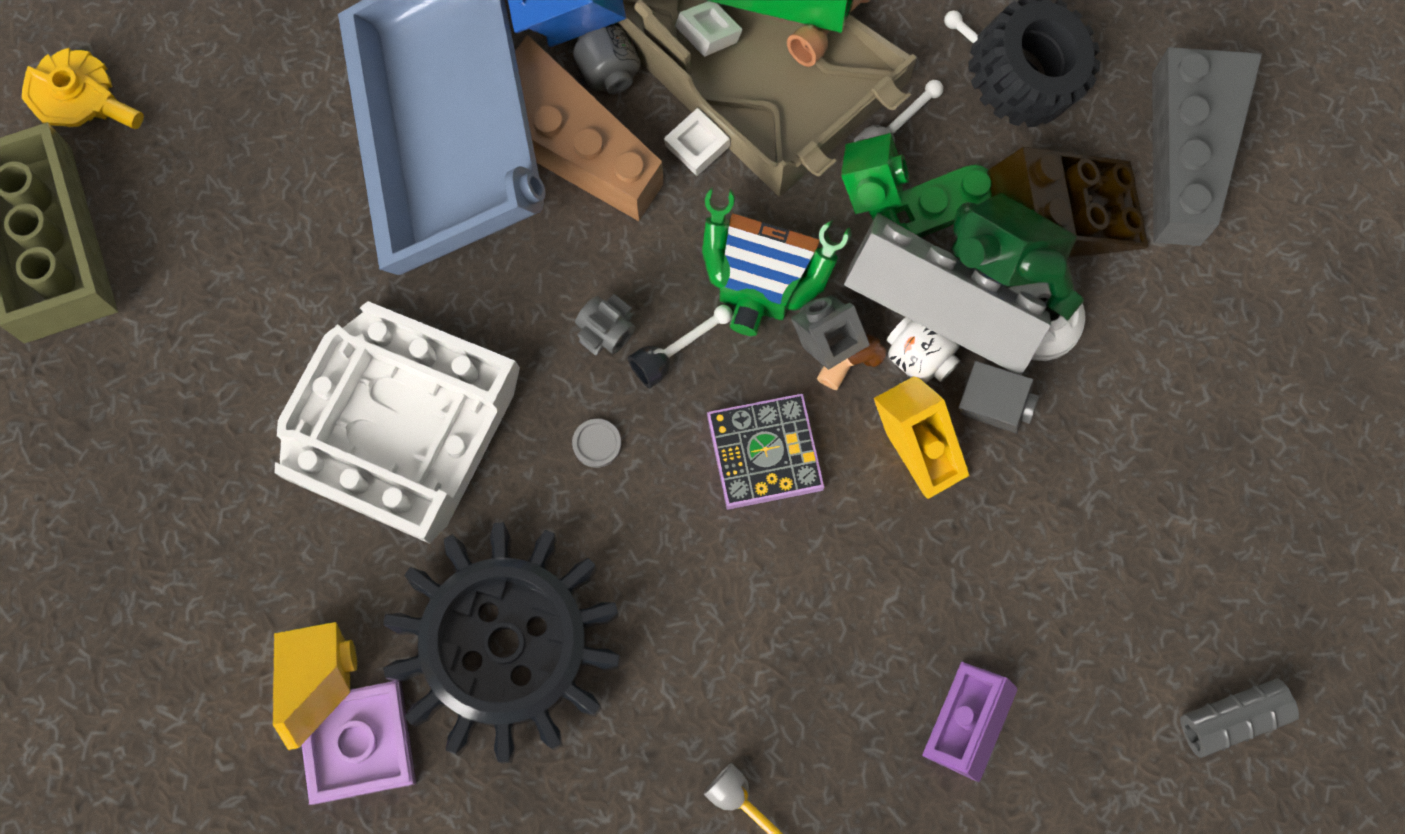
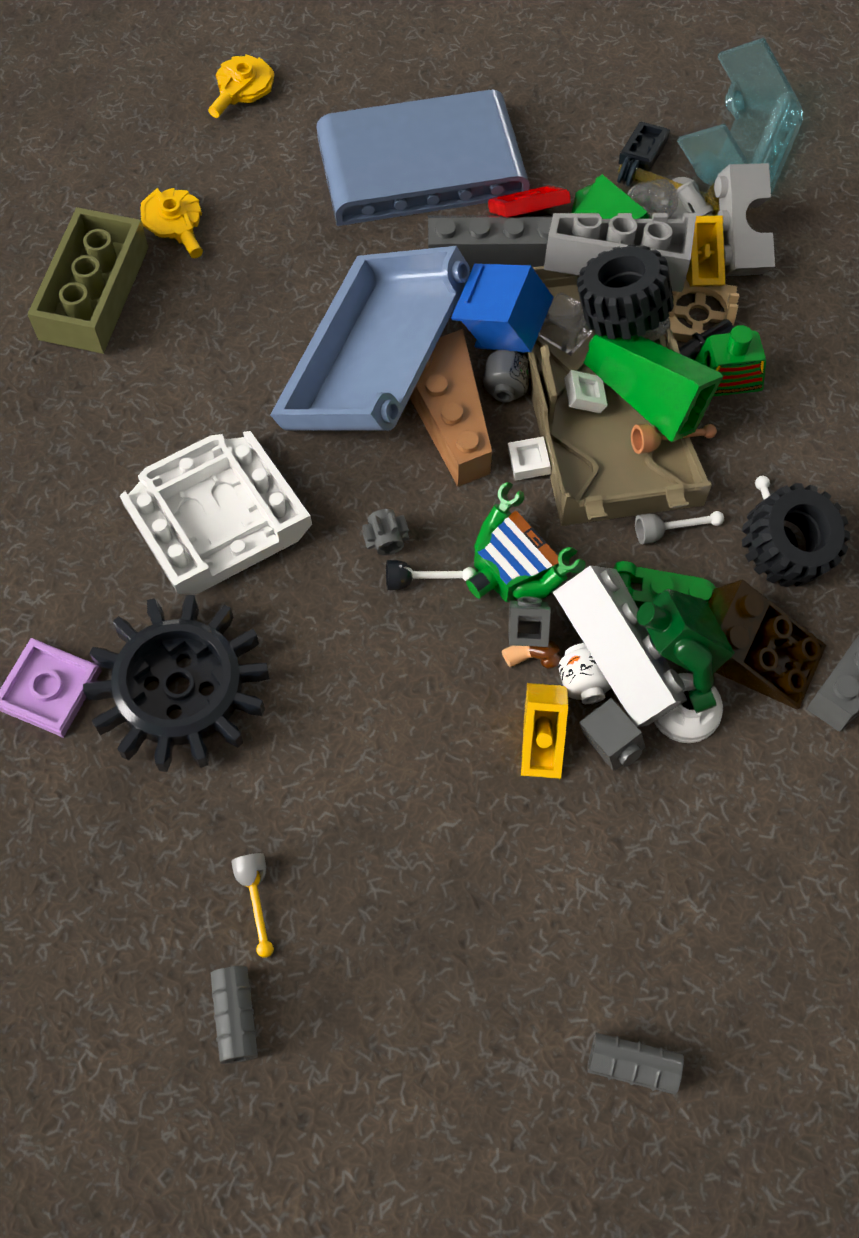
camera: 35 degrees right, 10 degrees down
(309, 679) = (45, 627): yellow slope -> none
(596, 443) = (329, 603): light grey piece -> none
(765, 451) = (433, 675): tile -> none
(874, 173) = (629, 541): green brick -> none
(970, 721) = (444, 939): medium lavender slope -> none

